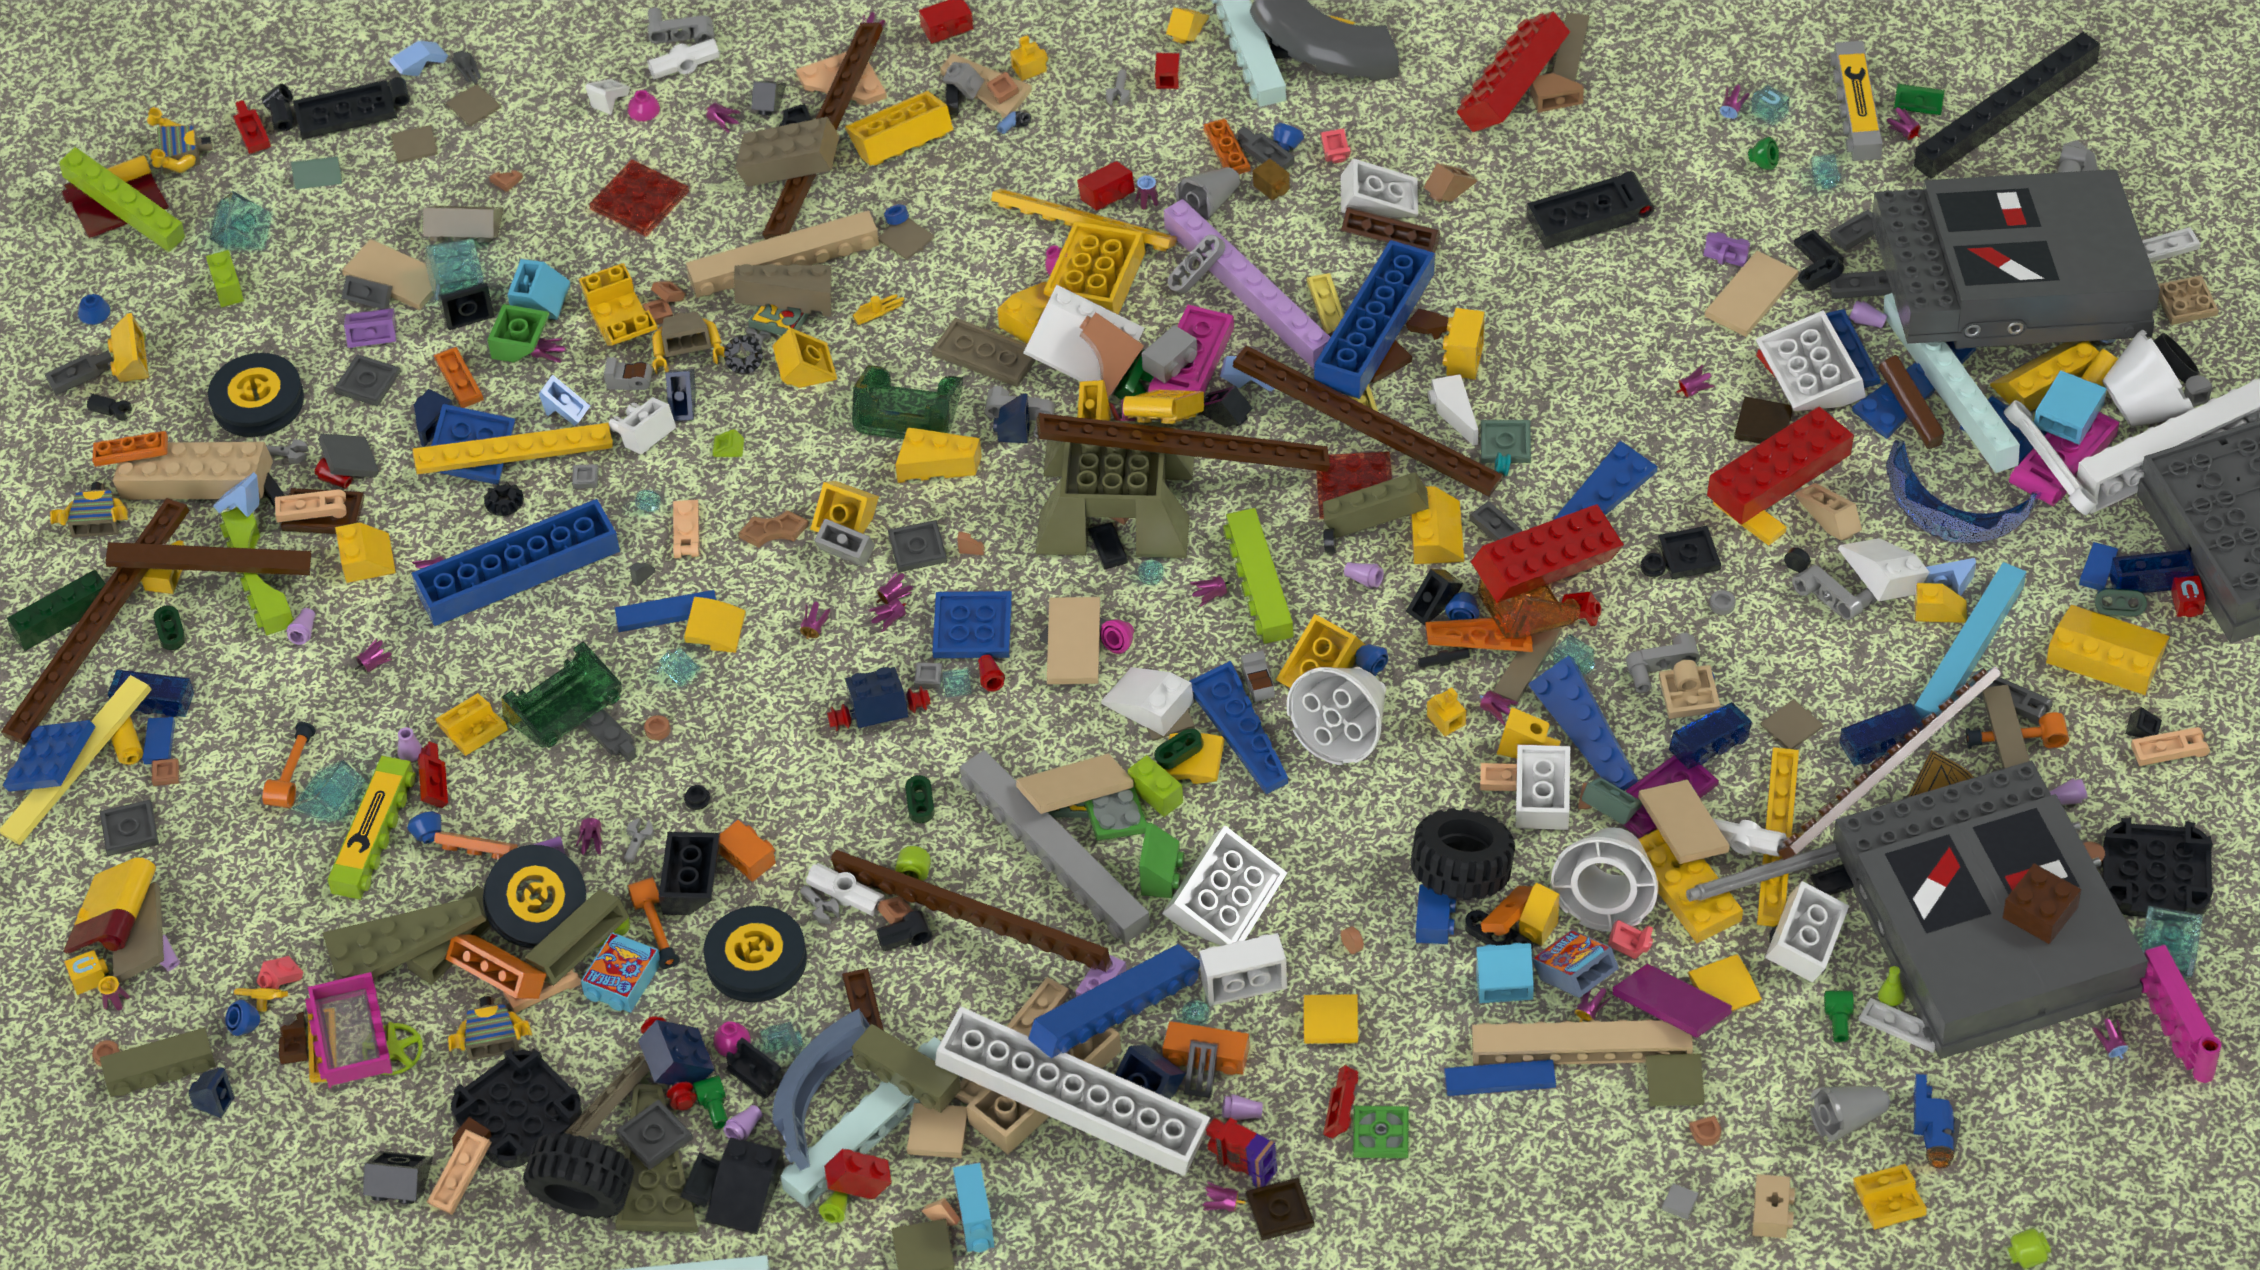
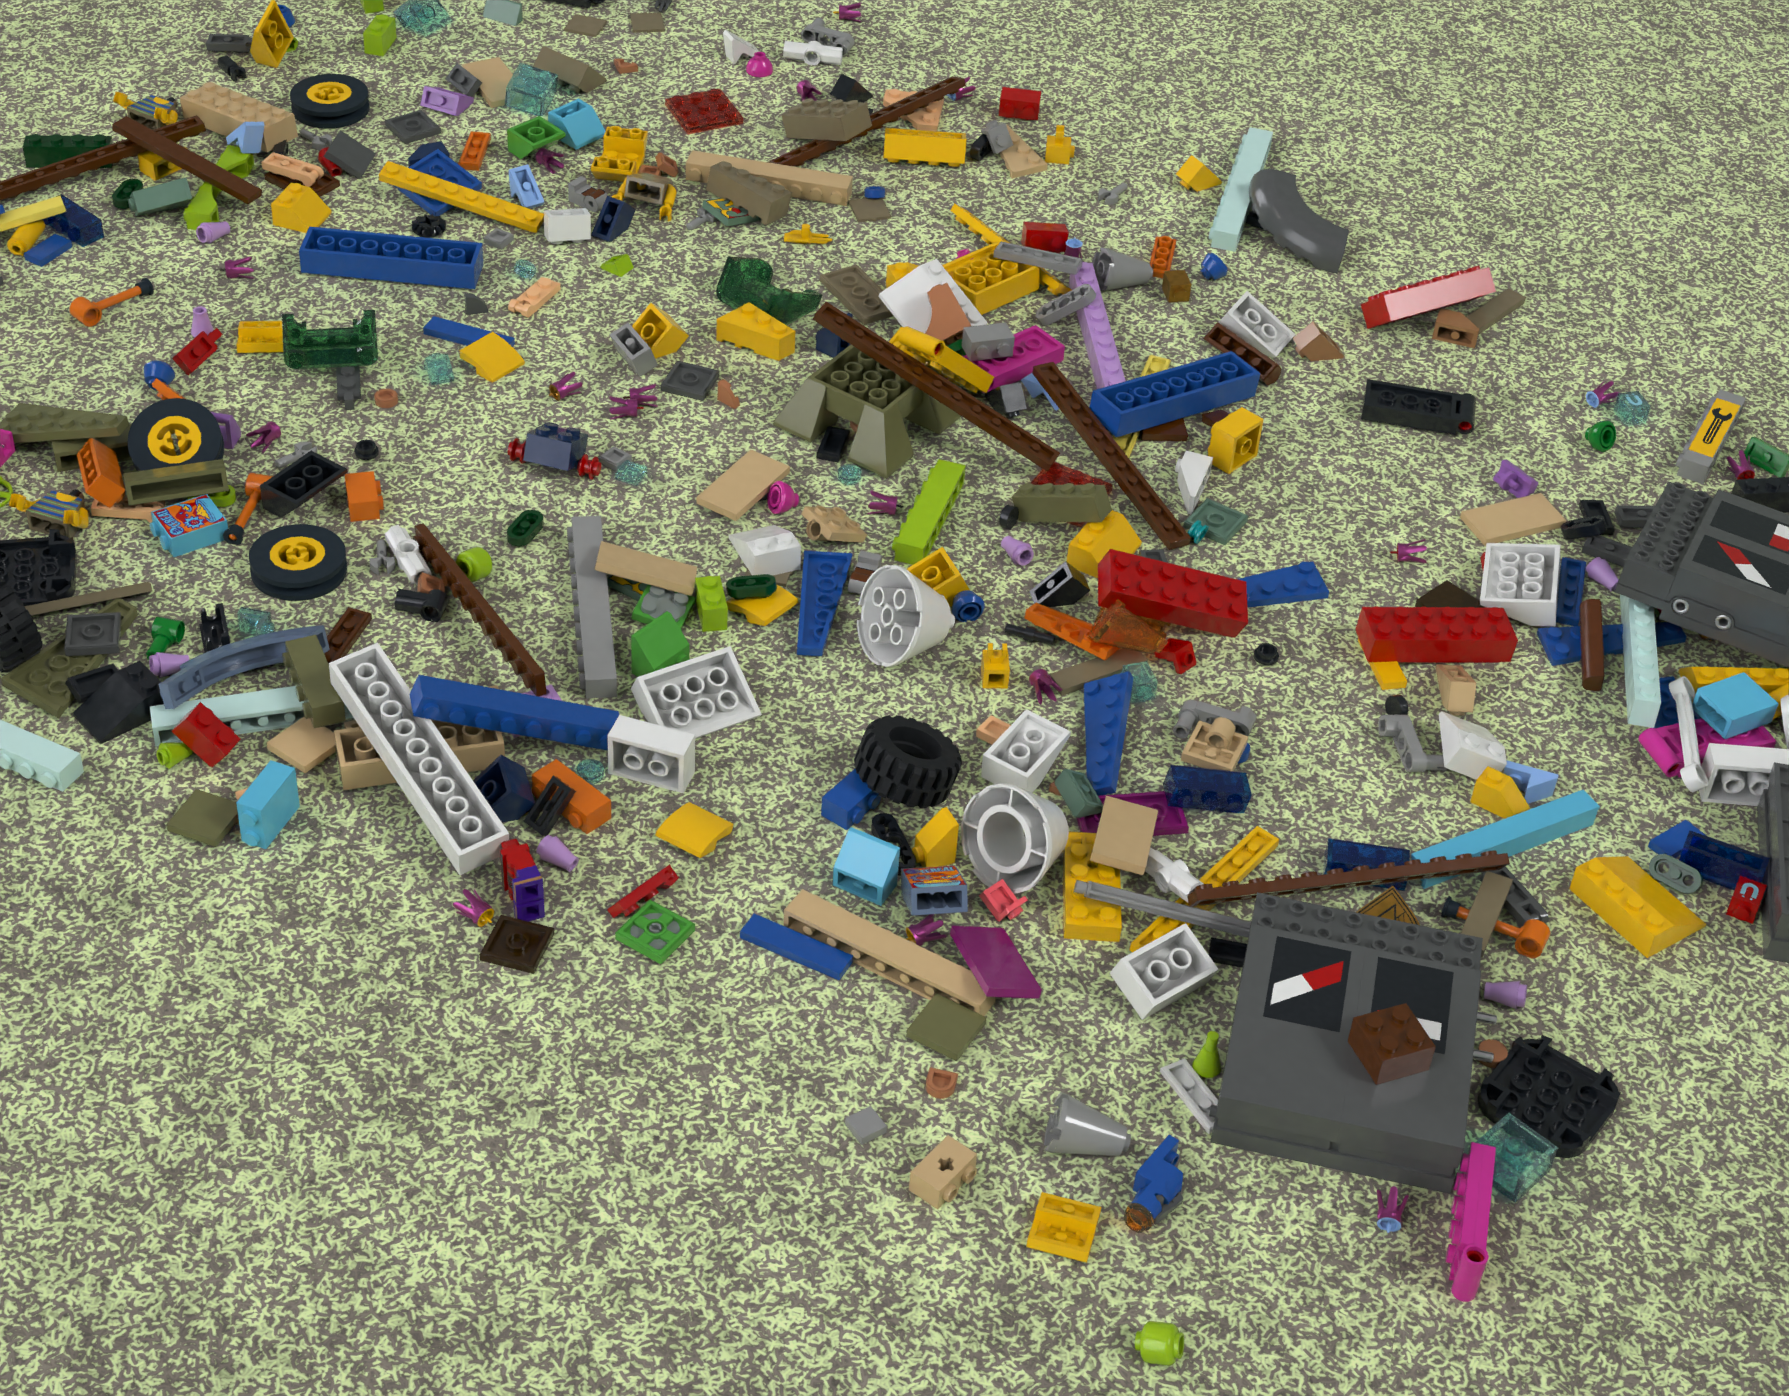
camera: 25 degrees right, 10 degrees down
(130, 448) = (206, 82): orange tile -> none
(165, 772) = (31, 268): nougat tile -> none
(220, 616) = (160, 197): none -> sand green slope
(330, 792) = (119, 326): clear light blue slope -> none
(371, 827) = (120, 359): brick -> none
(466, 306) = (516, 108): black slope -> none
(675, 1058) = (159, 591): dark blue brick -> none
(727, 1035) = (230, 604): dark pink brick -> none
(752, 361) = (684, 225): black gear -> none
(784, 526) = (593, 323): medium nougat tile -> none
(803, 359) = (720, 238): yellow slope -> none
(972, 624) = (679, 442): blue plate -> none
(990, 674) = (659, 478): red cone -> none
(1002, 87) = (1022, 153): nougat tile -> none
(1014, 119) = (1017, 178): arm -> none
(1134, 223) = (1038, 258): none -> light grey tile
(1167, 70) = (1157, 195): red brick -> none
(1194, 638) = (831, 525): none -> tan plate
(1263, 148) = (1190, 264): dark grey hinge -> none
(1335, 146) = (1246, 283): coral bracket -> none
(1352, 940) = (766, 783): nougat tile -> none
(1462, 607) = (1075, 605): blue cone -> none
(1507, 912) = (902, 826): orange tile -> none
(1524, 730) = (1044, 702): yellow torso -> none
(1689, 552) = (1305, 660): black plate -> none
(1722, 602) = (1305, 708): light grey tile -> none
(1727, 981) = (1060, 979): yellow slope -> none
(1791, 725) = (1291, 821): dark tan piece -> none
(1825, 171) = (1644, 467): clear light blue bracket -> none
(1839, 1007) = (1145, 1049): green pin -> none
(1941, 519) = (1550, 734): clear blue windscreen -> none
(2143, 724) = (1627, 979): black slope -> none
(2170, 746) = (1639, 1006): light nougat plate -> none

